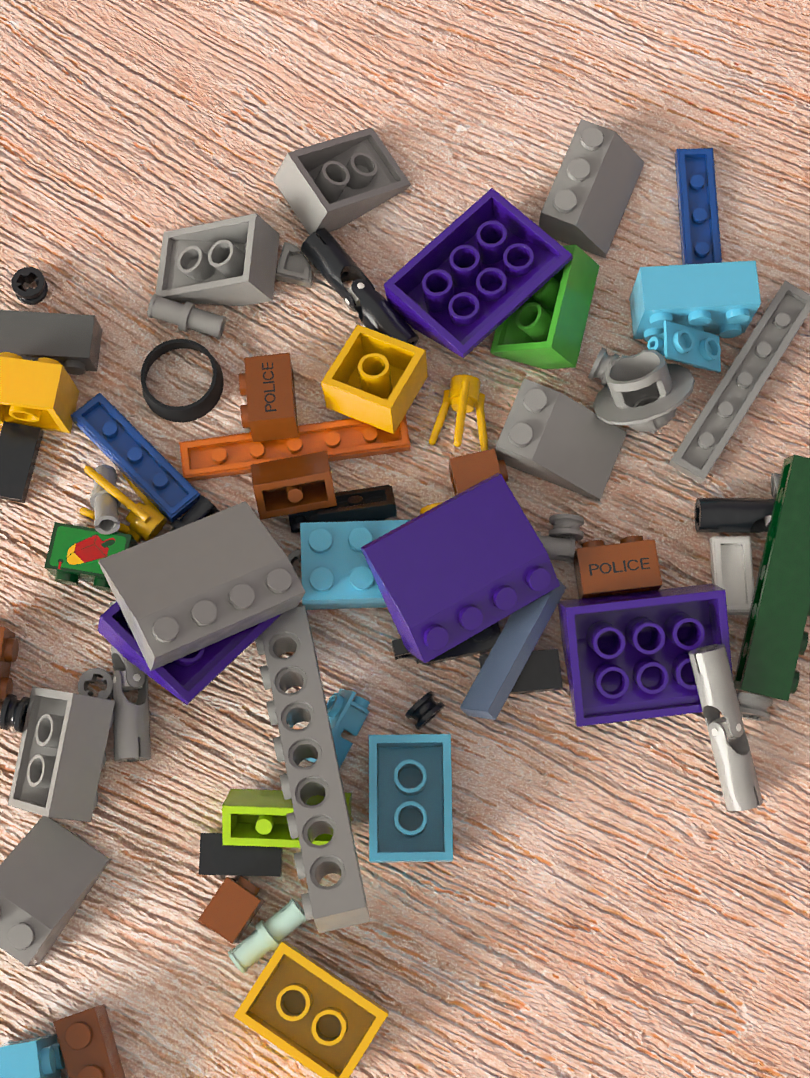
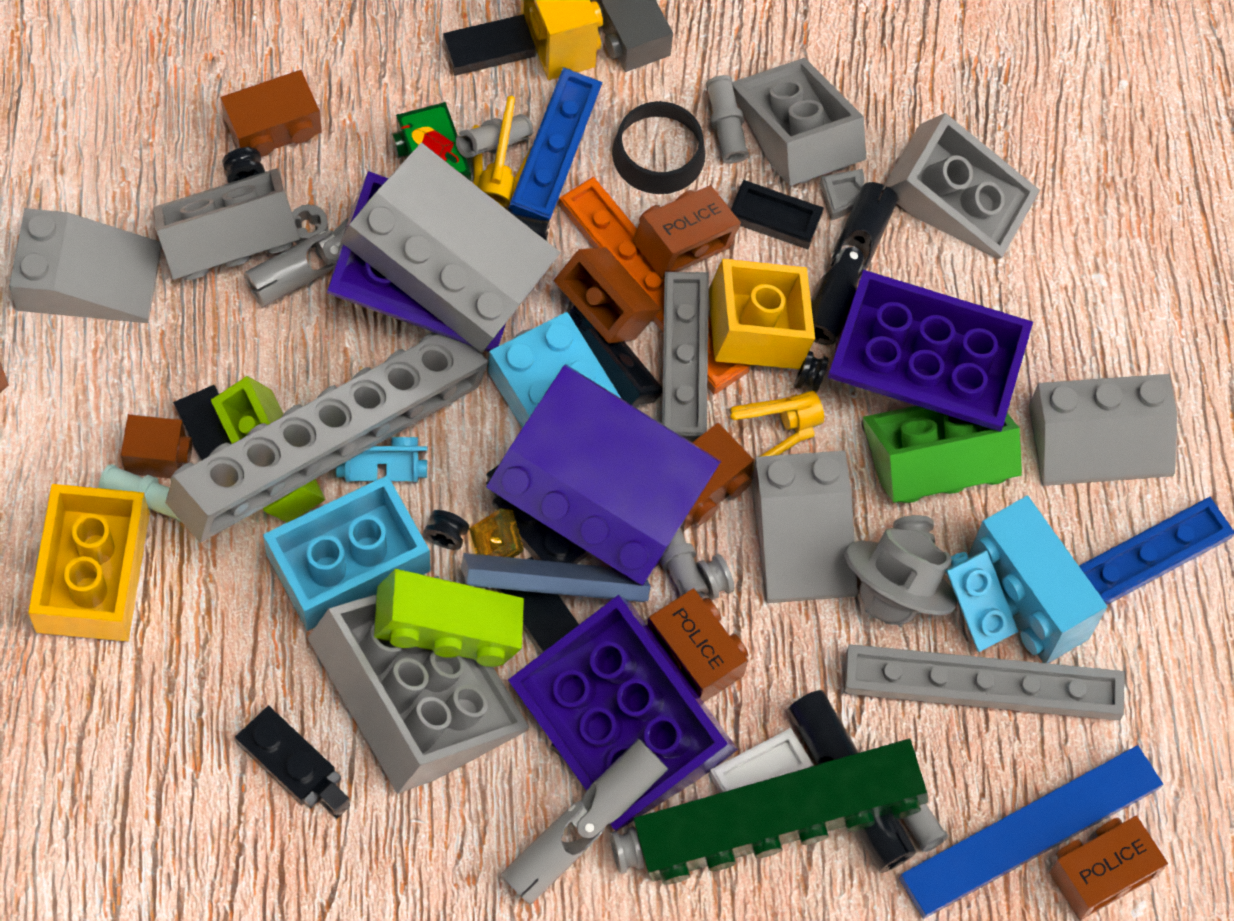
camera: 55 degrees right, 10 degrees down
(286, 324) = (776, 214): none -> black tile
(374, 453) = (685, 353): none -> light grey tile
(438, 369) = (811, 372): none -> black bush
(453, 675) = (497, 535): none -> clear yellow plate
(512, 748) = (448, 618): none -> lime brick
(542, 797) = (410, 704): none -> light grey slope
(556, 927) = (292, 762): none -> black hinge

